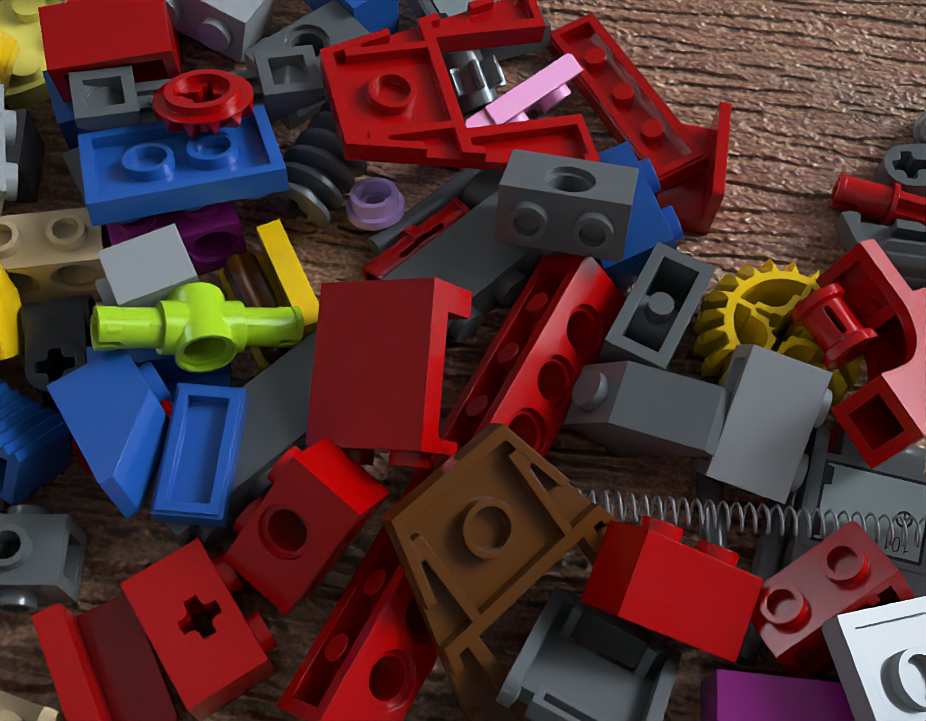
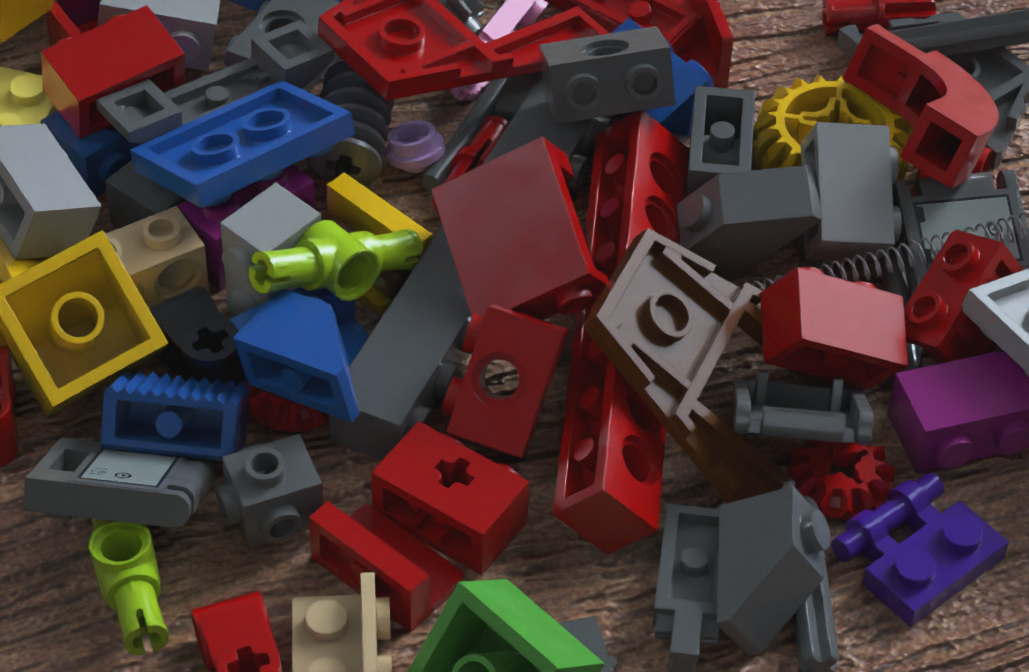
camera: 20 degrees left, 15 degrees down
(200, 455) = (388, 358): blue tile -> none
(203, 101) = (236, 87): red gear -> none
(833, 326) = (873, 102): red bush -> none

